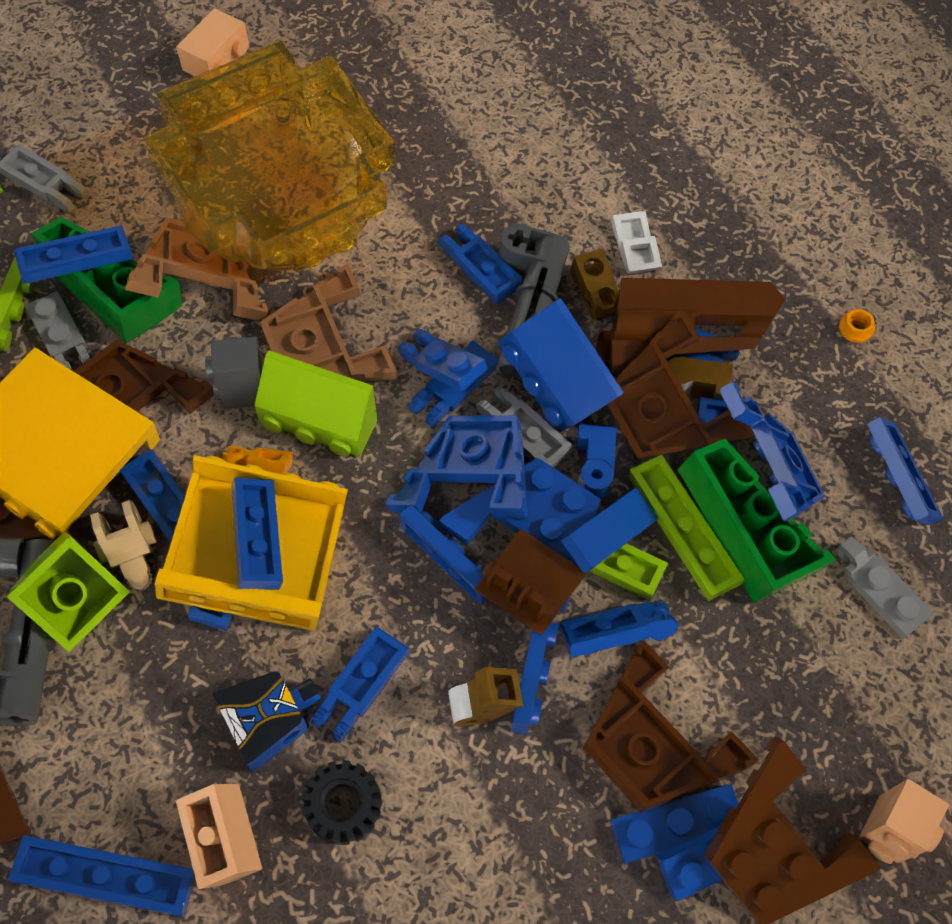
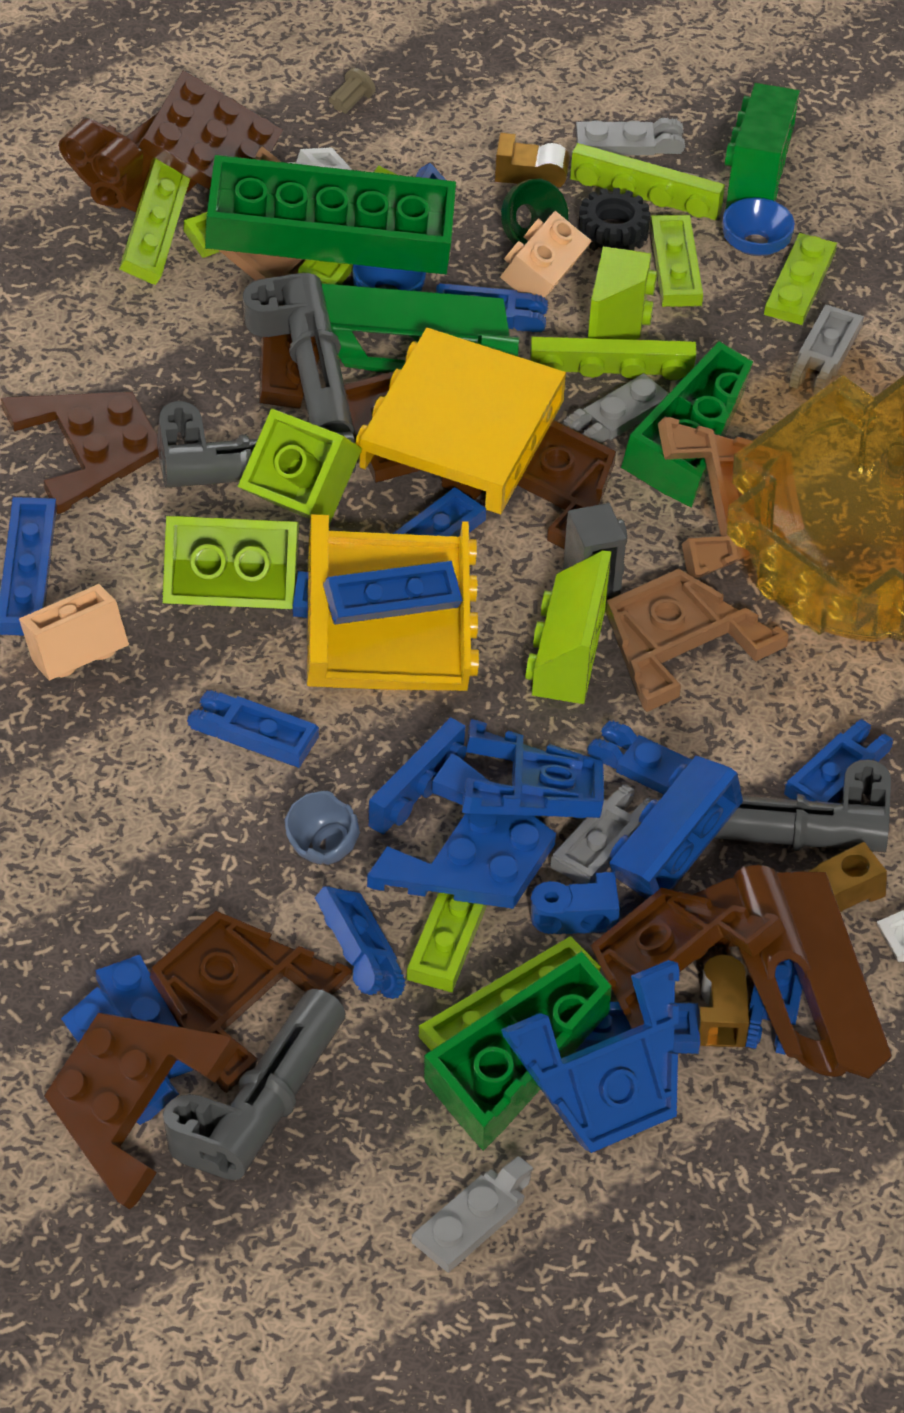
camera: 80 degrees right, 15 degrees down
(72, 254) = (698, 378): blue tile -> none
(127, 546) = (365, 505): tan hinge -> none
(152, 674) = (230, 562): none -> lime slope
(265, 715) = (201, 652): torso -> none
(268, 459) = (494, 604): light orange plate -> none
(318, 790) = (123, 747): black tyre -> none
(443, 360) = (670, 736): blue hinge -> none
(478, 699) = (251, 815): pearl gold leg -> none
(498, 628) = (321, 817): none -> sand blue hair
(530, 581) = (389, 831): reddish brown hinge -> none
(535, 673) = (294, 866): blue plate -> none
(609, 530) = (475, 907): blue tile -> none
(766, 719) = (237, 1132): none -> dark grey piece
(861, 318) = (875, 1174): light orange plate -> none
(904, 472) = (646, 1232): blue plate -> none
(904, 823) = (168, 1197): light nougat brick -> none

